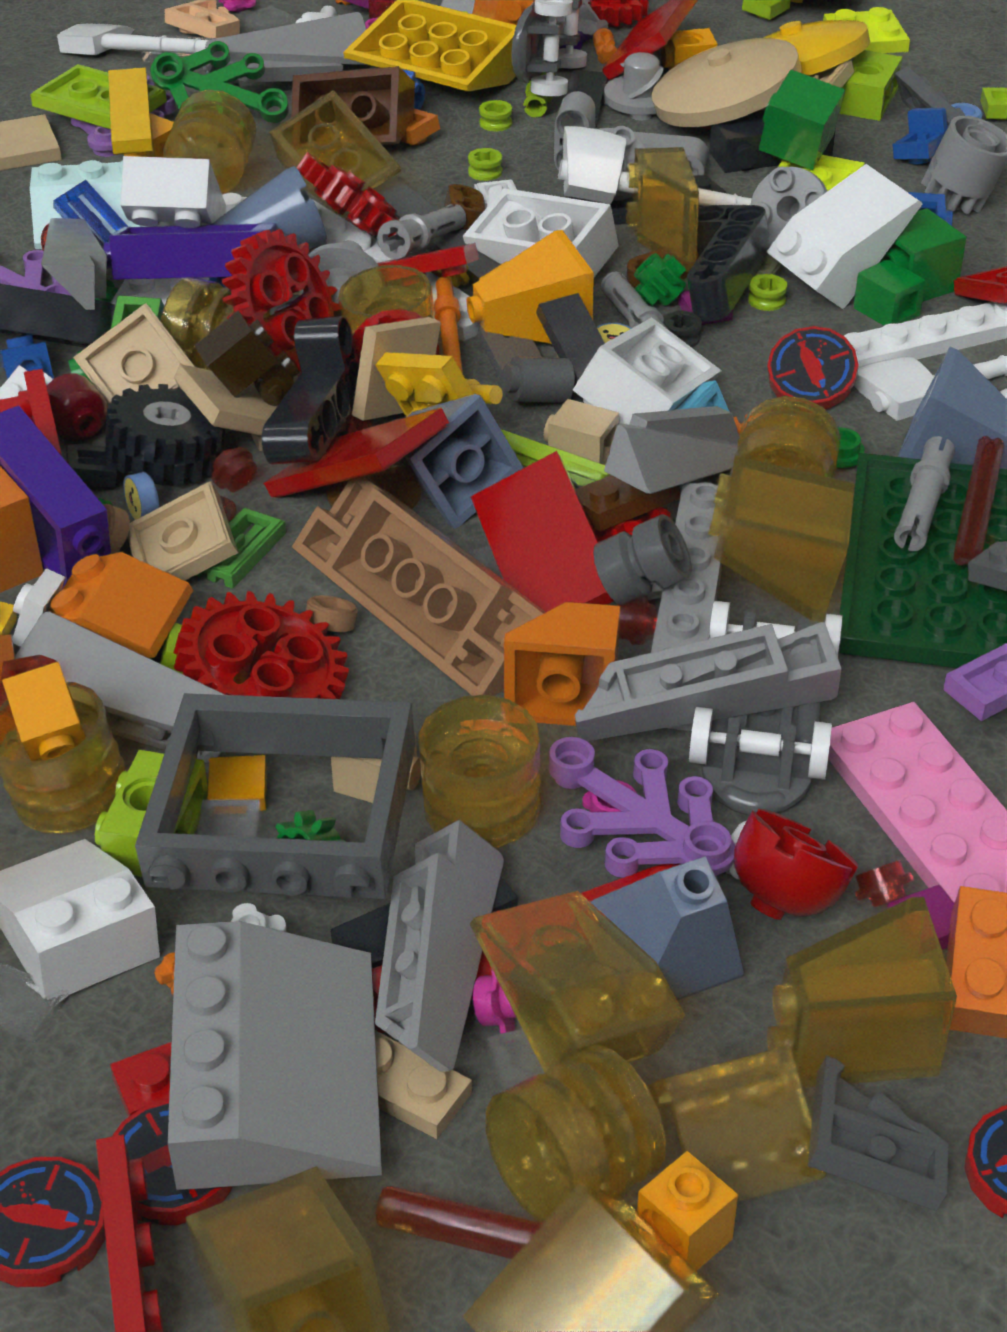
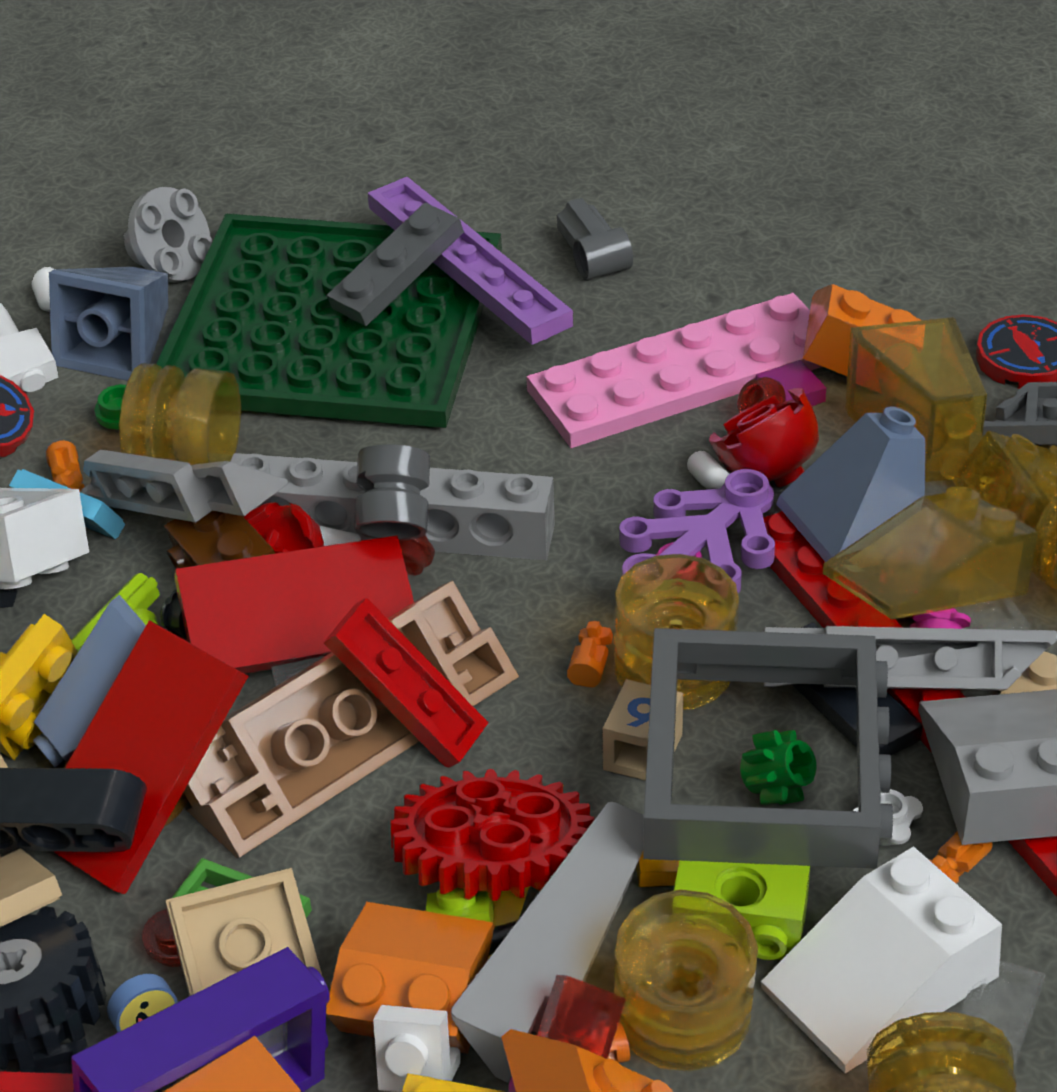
camera: 90 degrees left, 0 degrees up
(44, 712) = (683, 938): light orange brick -> none
(234, 469) = (96, 910): clear red plate -> none
(335, 611) = (382, 794): medium nougat tile -> none
(422, 594) = (406, 682): none -> red plate
(558, 659) = (513, 569): orange slope -> none
(582, 430) = (74, 588): tan brick -> none
(725, 673) = (564, 464): light grey wedge -> none
(765, 755) = (588, 471): dark grey piece -> none
(783, 531) = (324, 403): clear yellow slope -> none
(928, 481) = (224, 330): light grey pin -> none
(978, 500) = (253, 305): clear red axle -> none

